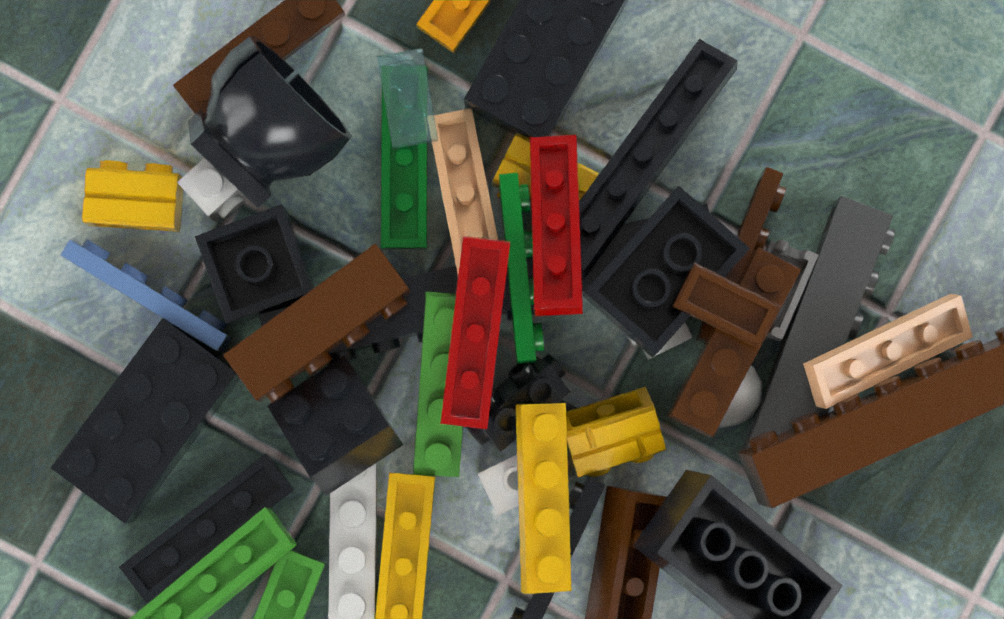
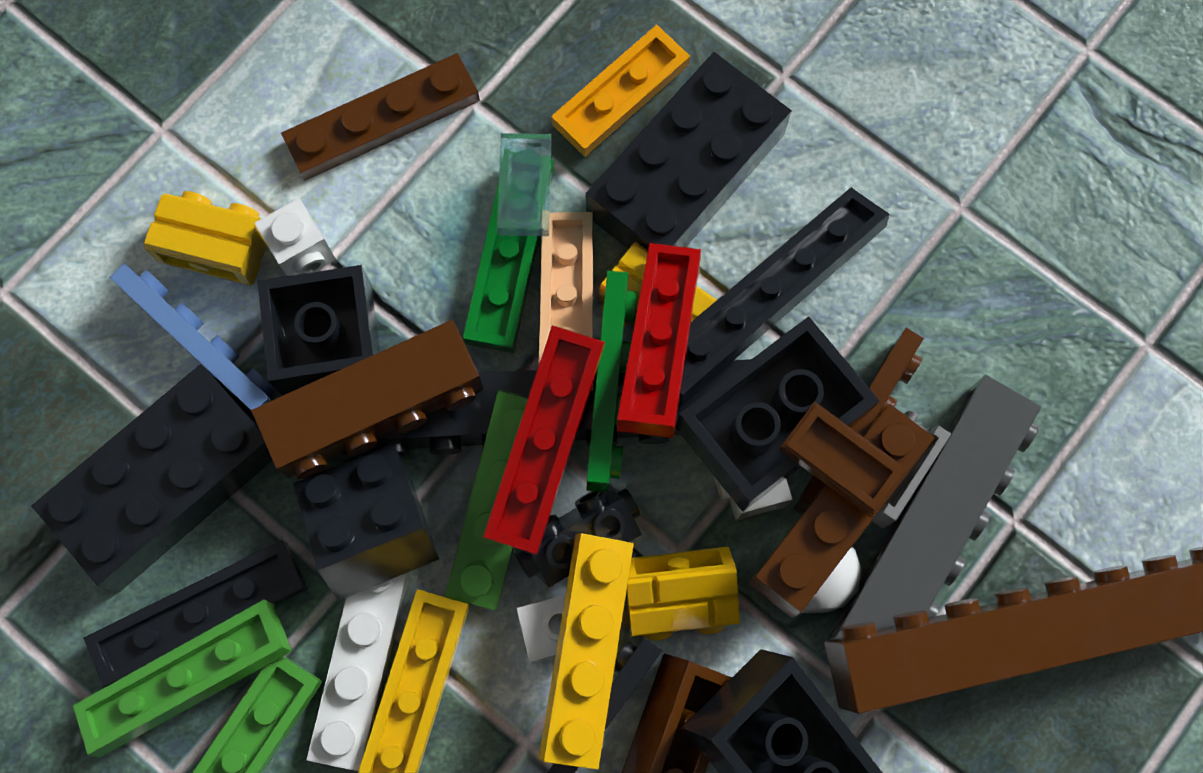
camera: 10 degrees right, 10 degrees down
(263, 126) = (361, 175): black plate -> none
(887, 350) = (1014, 558): light nougat plate -> none

